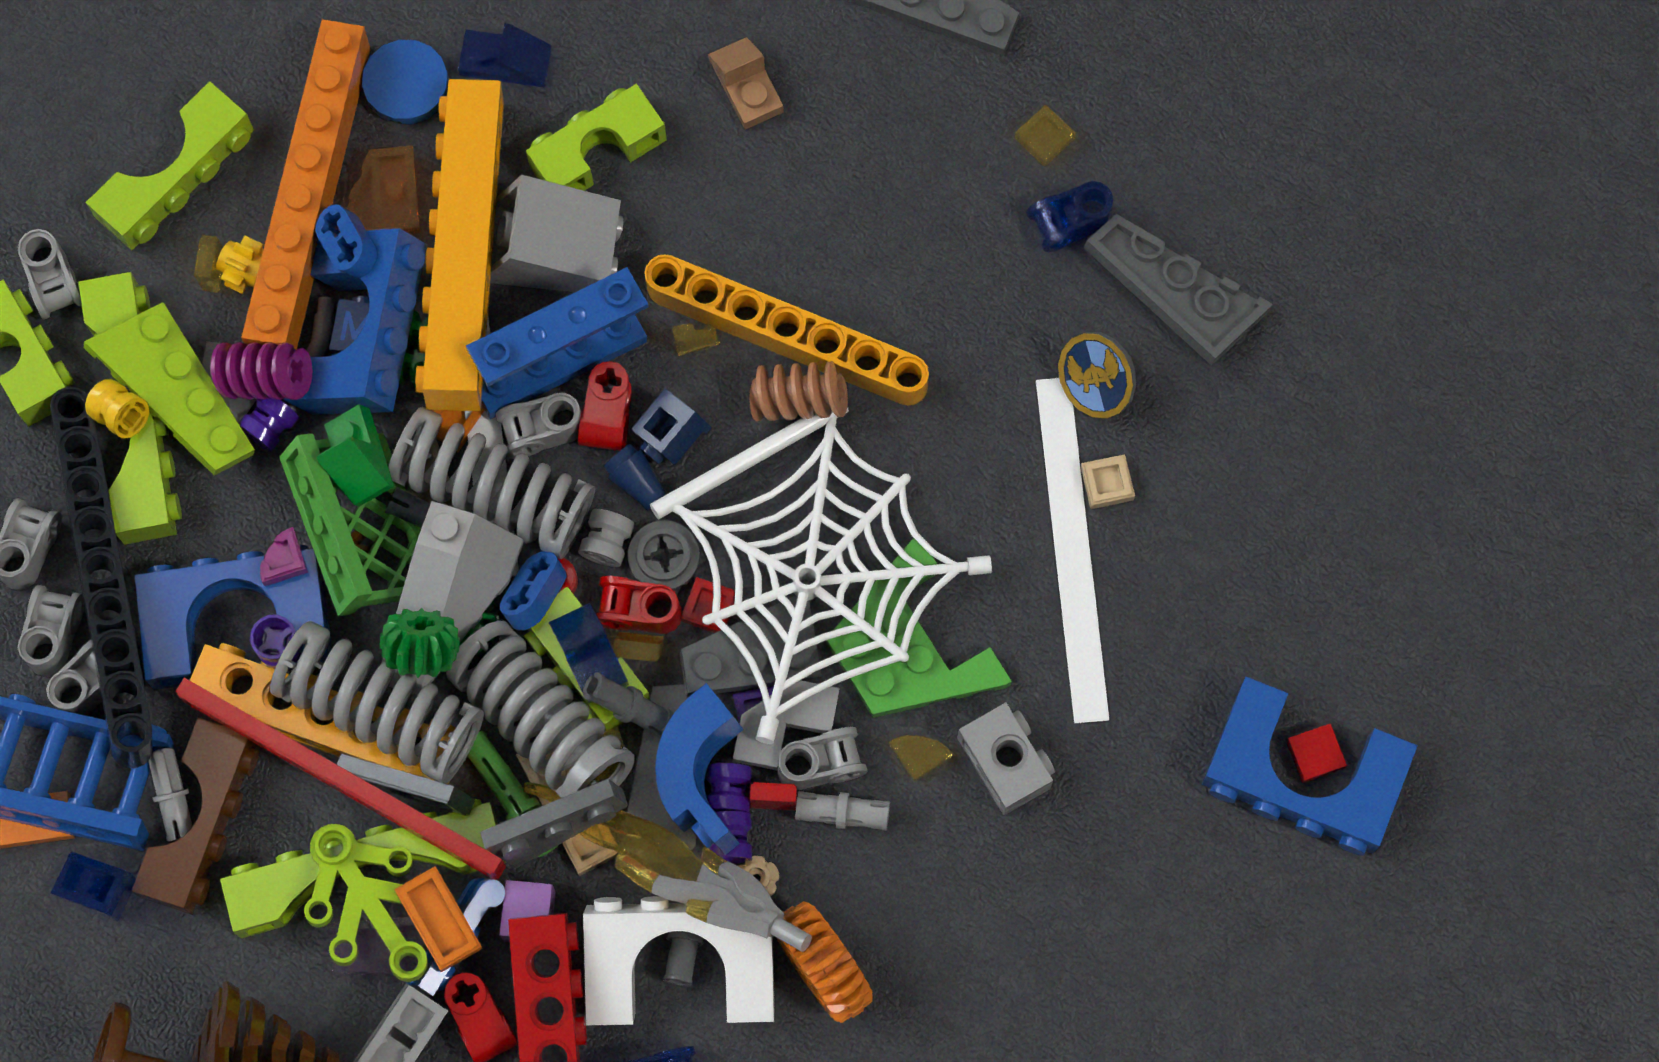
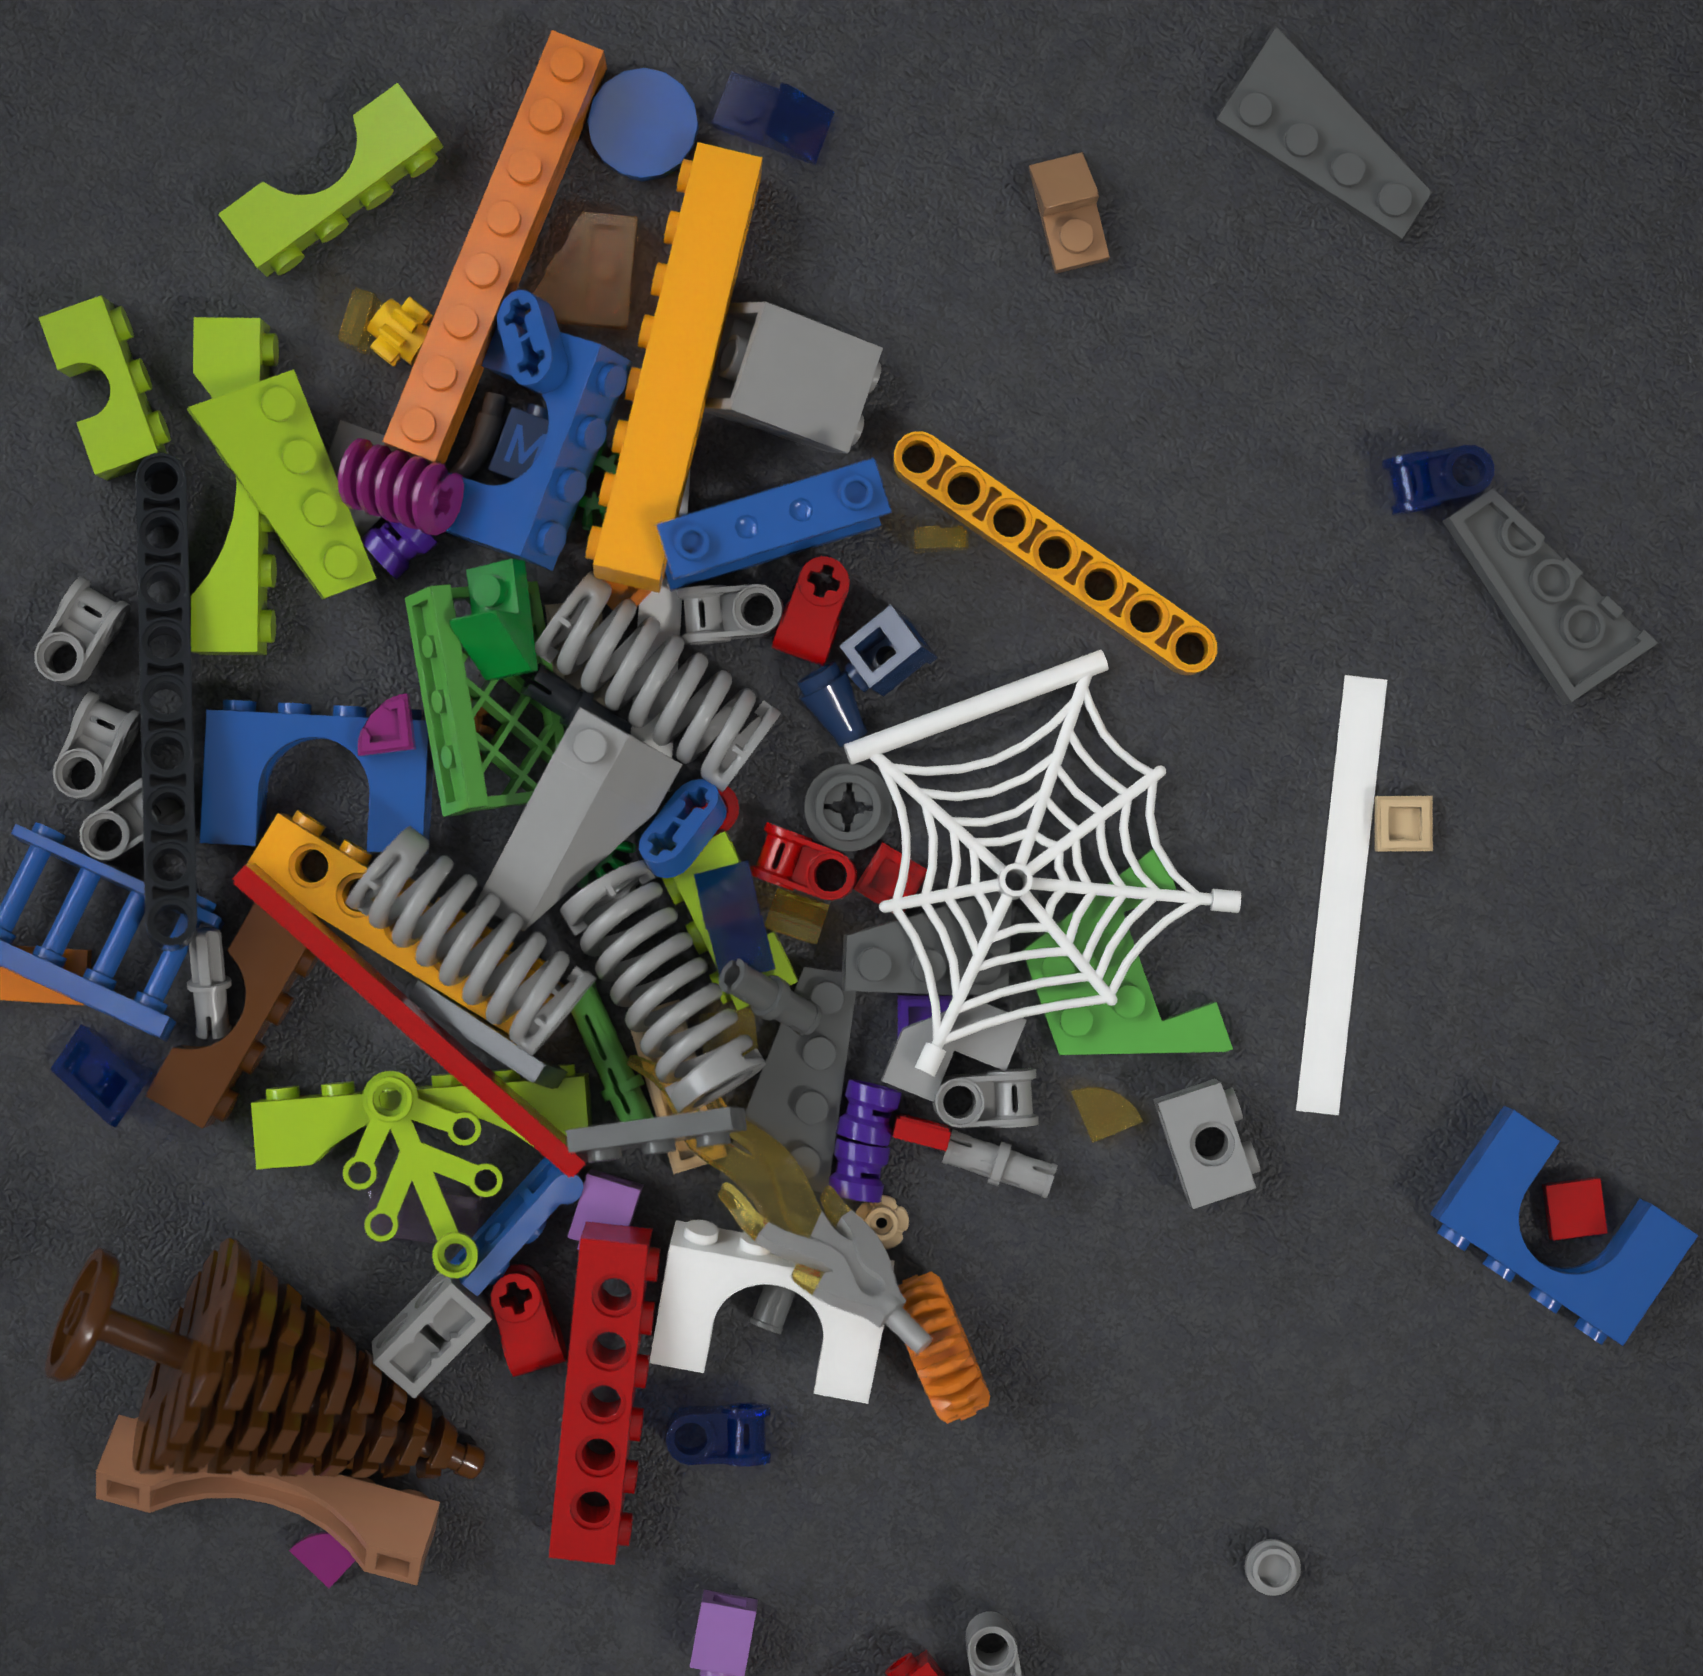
camera: 10 degrees right, 15 degrees up
(51, 280) = (159, 298): light grey piece -> none
(117, 408) = (212, 494): yellow wheel -> none
(270, 634) = (353, 837): dark purple wheel -> none
(419, 642) = (534, 885): green gear -> none
(438, 919) = (498, 1212): orange tile -> none
(606, 538) = (783, 773): light grey wheel -> none
(622, 120) = (907, 237): lime arch -> none
(682, 757) = (820, 1080): blue arch -> none
(798, 393) = (1052, 643): nougat piece -> none
(1045, 135) = (1427, 361): clear yellow tile -> none
(1097, 374) = (1422, 695): shield -> none

